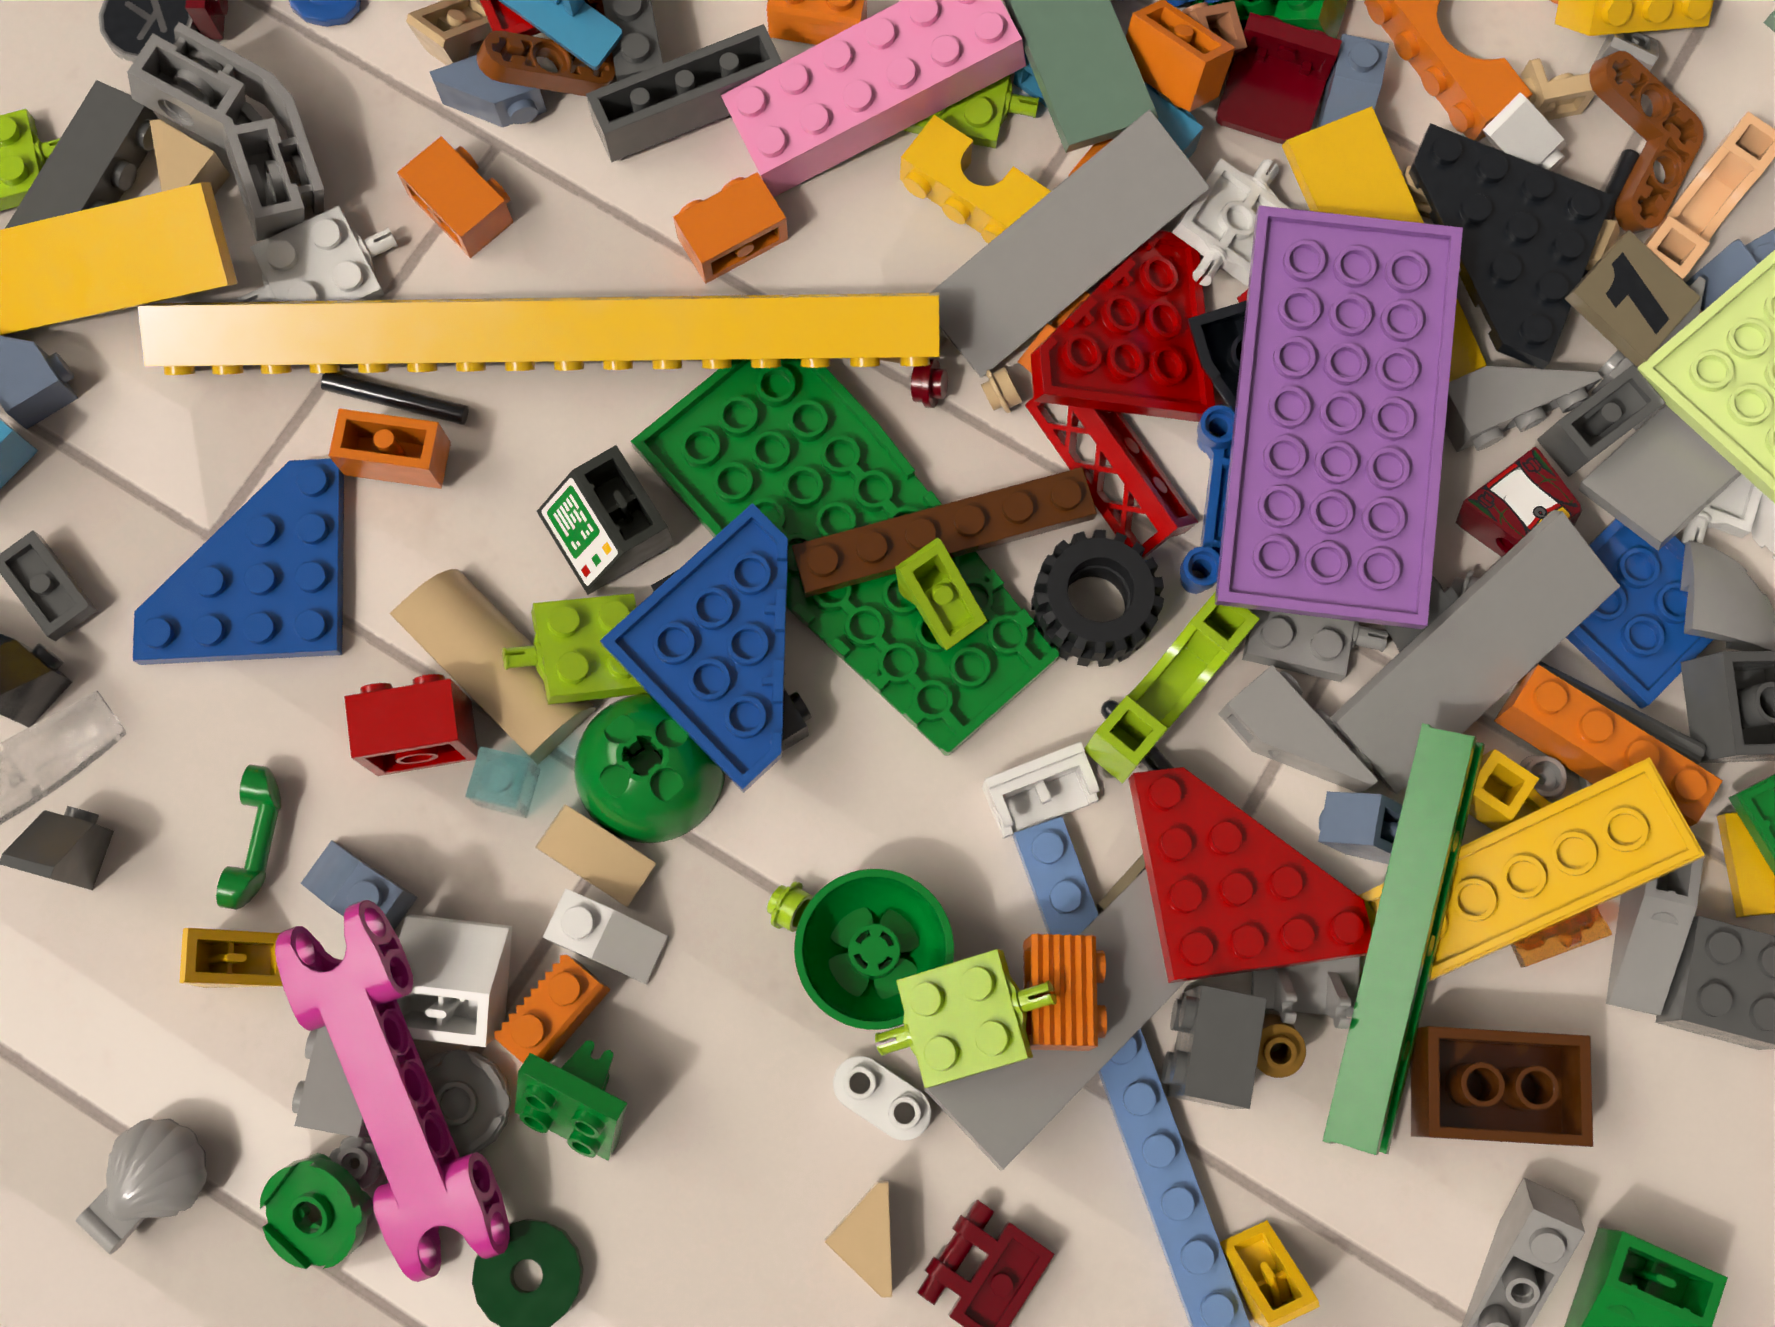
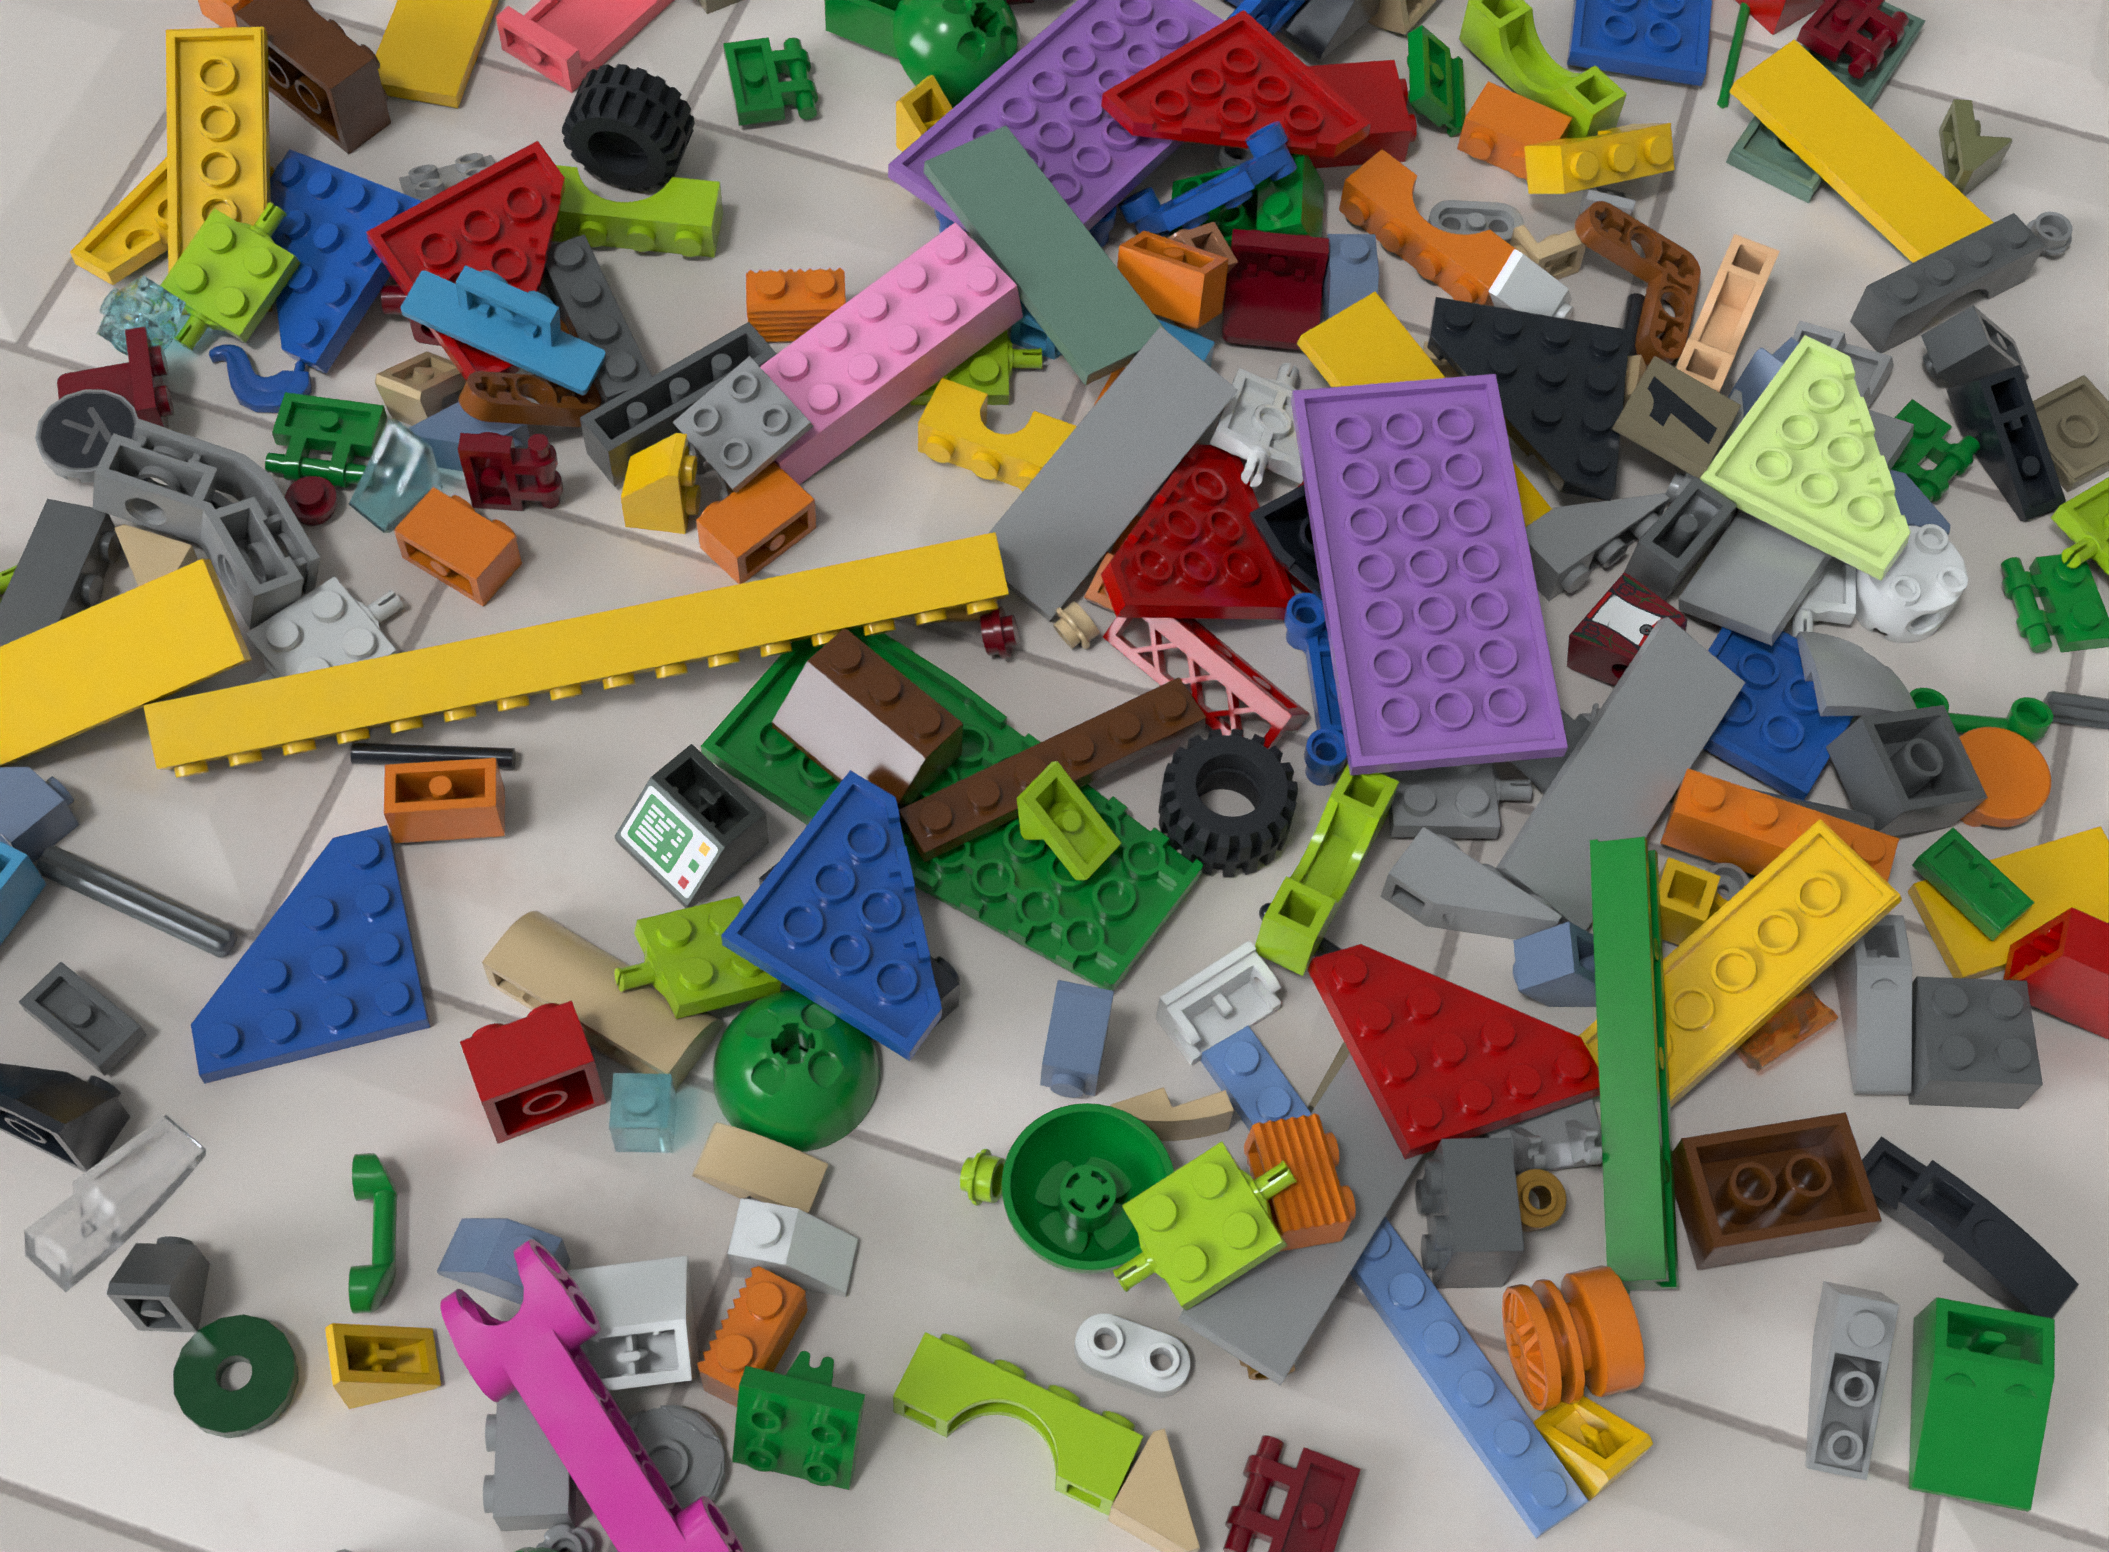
camera: 15 degrees left, 15 degrees down
(85, 929) = (212, 1352): none -> dark green tile
(111, 484) = (137, 901): none -> dark grey axle
(335, 122) = (312, 500): none -> dark red plate
(365, 51) = (328, 426): none -> green plate
(412, 117) = (395, 477): none -> clear light blue slope
(511, 138) = (506, 476): none -> dark red plate
(650, 176) = (661, 487): none -> yellow slope
(733, 131) = (741, 426): none -> light grey plate
(782, 455) = (868, 719): none -> reddish brown slope
(819, 1183) = (953, 1386): none -> lime arch
(899, 803) = (1076, 1039): none -> sand blue slope
(954, 886) = (1183, 1122): none -> tan slope
(1283, 1185) = (1573, 1337): none -> orange wheel
(1494, 40) = (1475, 217): none -> light grey plate
(1671, 1165) = (1969, 1230): none -> black slope

